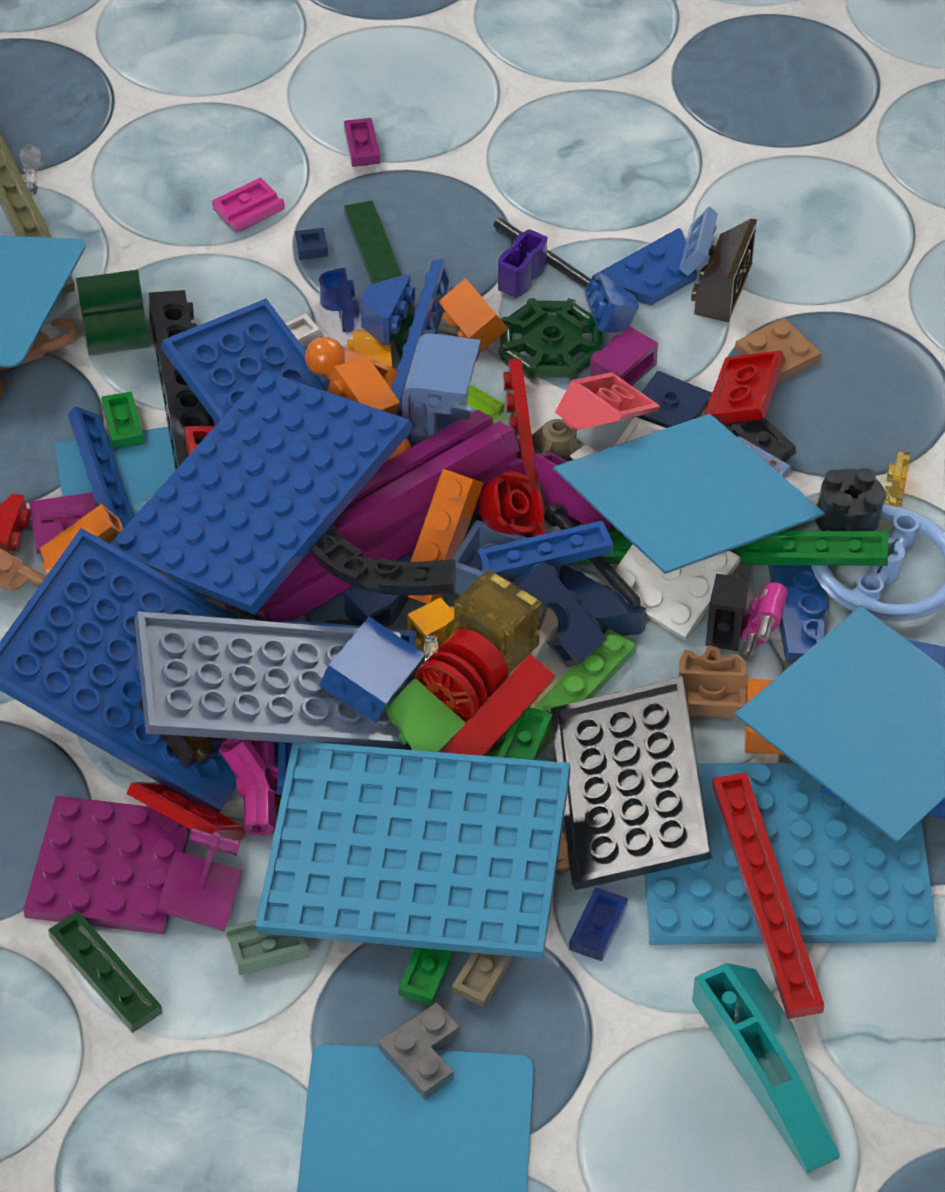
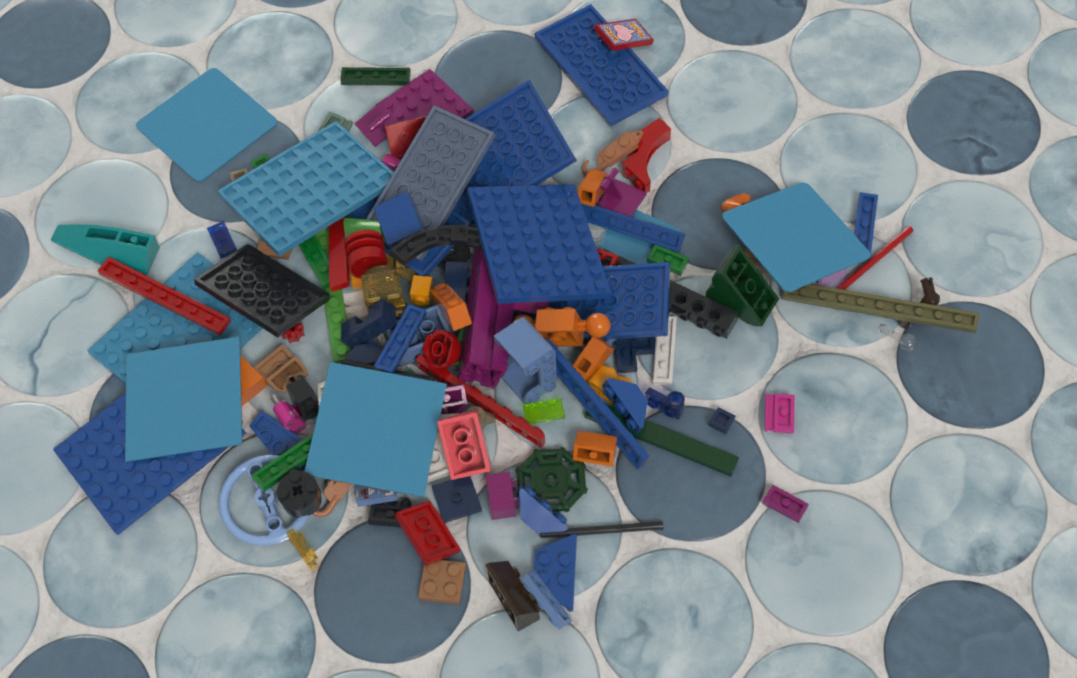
camera: 135 degrees right, 10 degrees up
(414, 1047) = (240, 145): flat silver plate -> none
(522, 263) = (610, 499): dark purple brick -> none

